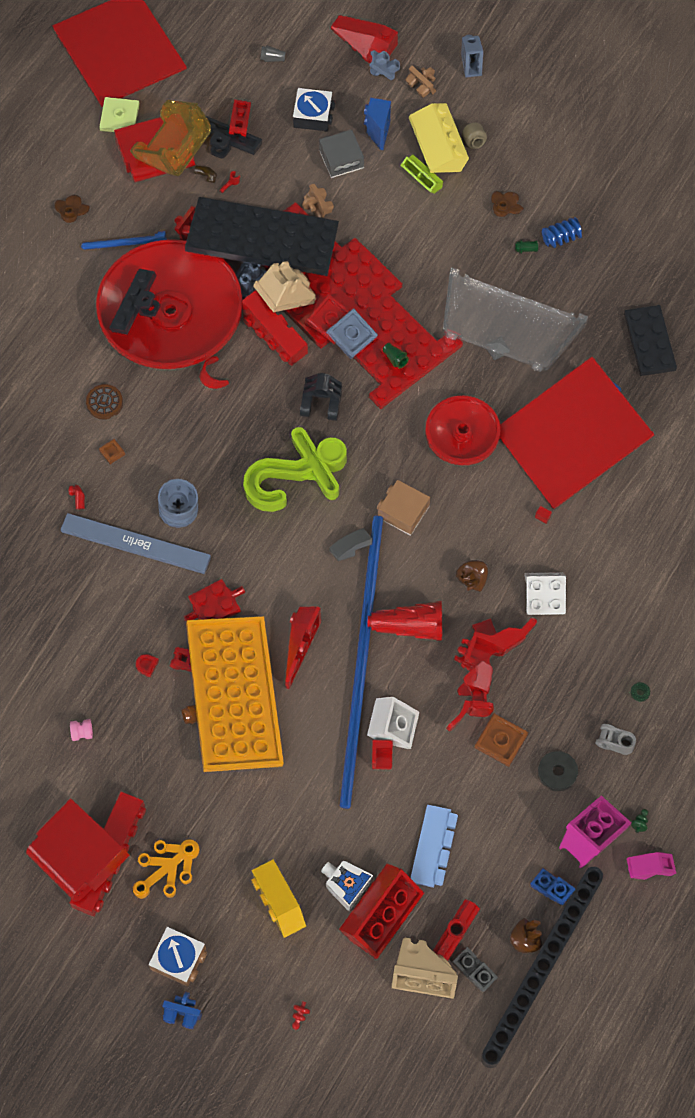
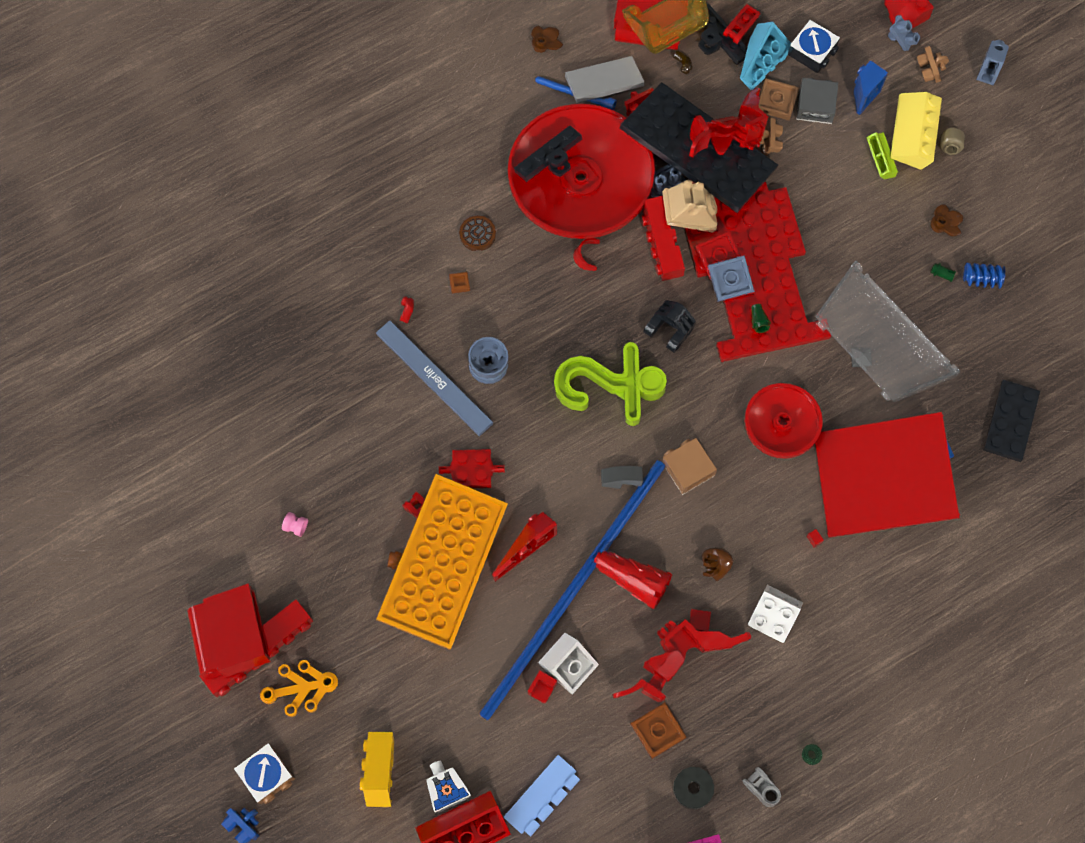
camera: 30 degrees right, 5 degrees up
(144, 218) = (604, 79): none -> light grey tile
(146, 664) = (383, 493): red tile -> none
(232, 181) = (703, 80): red hand -> none
(273, 132) = (764, 52): none -> medium azure wedge
(294, 201) = (746, 128): none -> red piece
(305, 168) = (778, 99): none -> medium nougat tile

